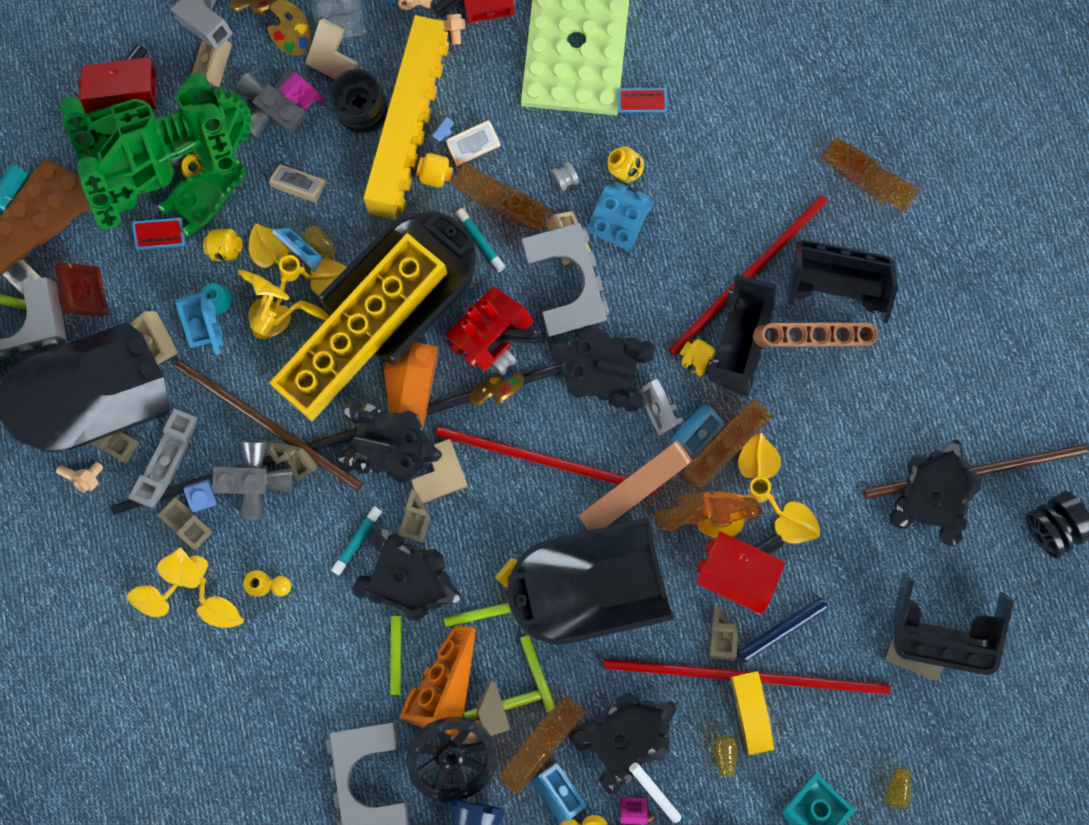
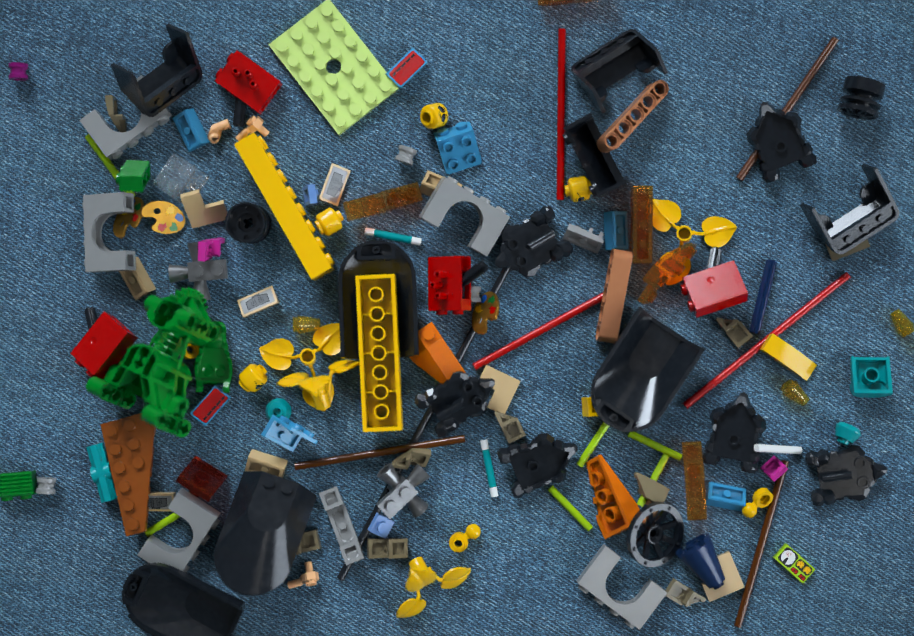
camera: 45 degrees left, 10 degrees up
(298, 247) = (298, 339): dark azure slope -> none

